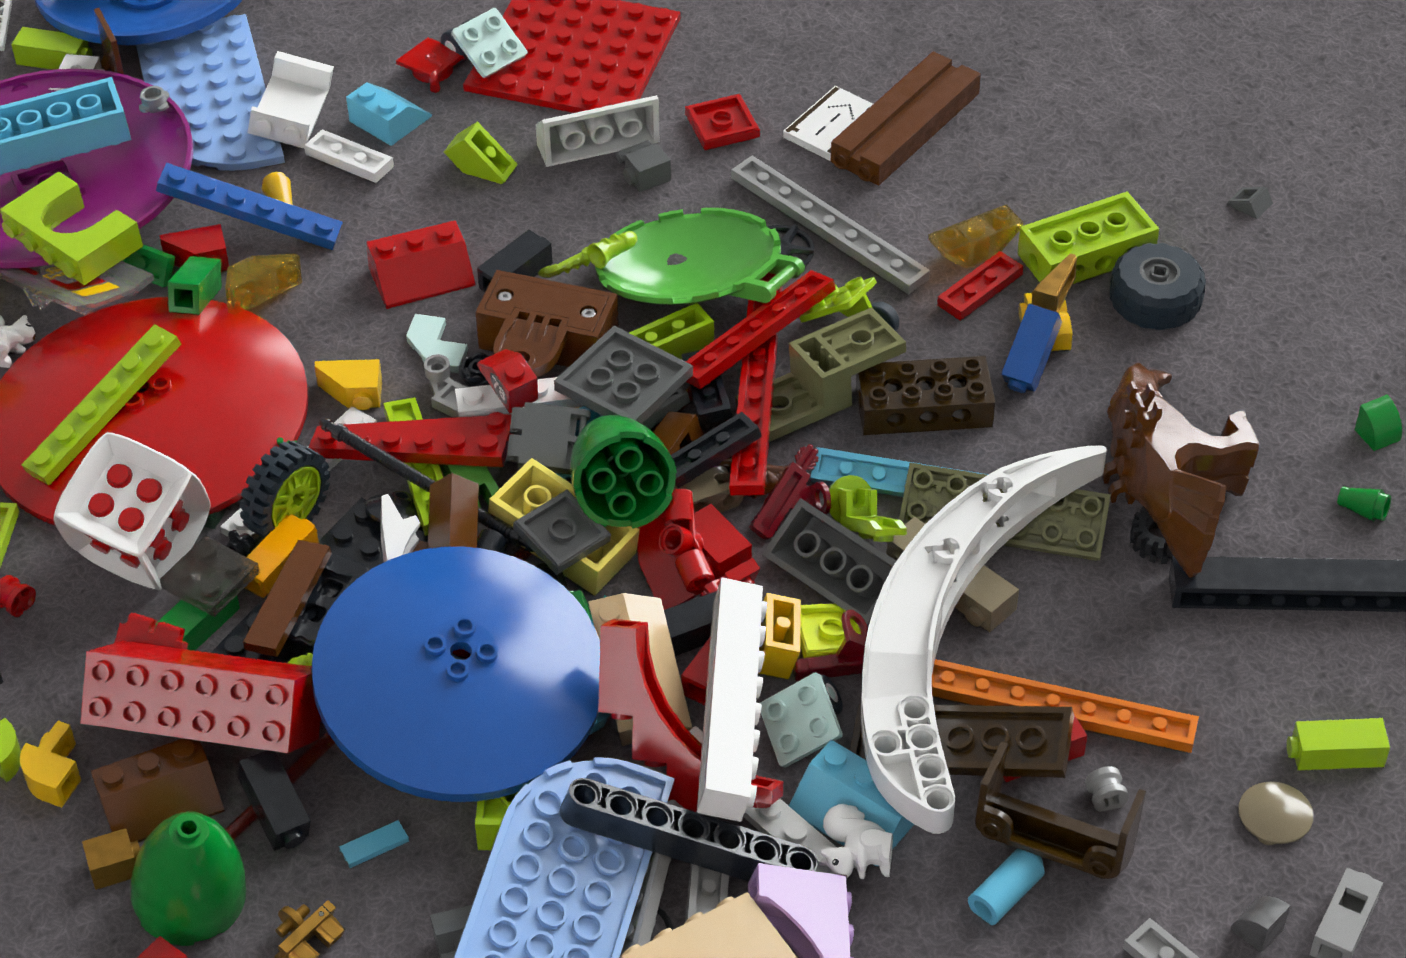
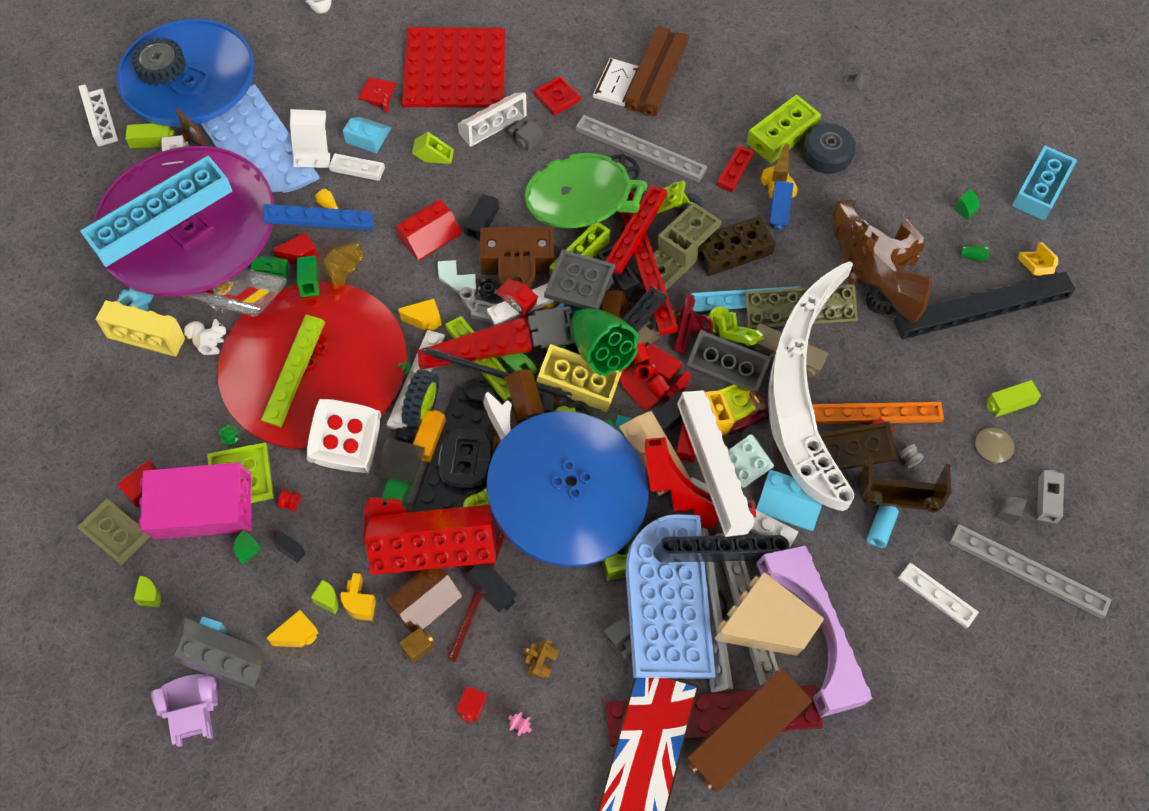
camera: 20 degrees left, 15 degrees up
(78, 254) = (239, 277): lime arch -> none
(153, 99) = (234, 161): light grey plate -> none
(188, 880) = (467, 650): green cylinder -> none
(287, 598) = (449, 463): reddish brown tile -> none
(374, 844) = (551, 593): medium azure piece -> none
(485, 42) = (407, 74): light aqua plate -> none
(561, 532) = (583, 385): dark grey tile -> none
(597, 253) = (530, 201): lime piece -> none
(863, 839) = (807, 524): white animal -> none
(977, 237) = (725, 139): clear yellow slope -> none

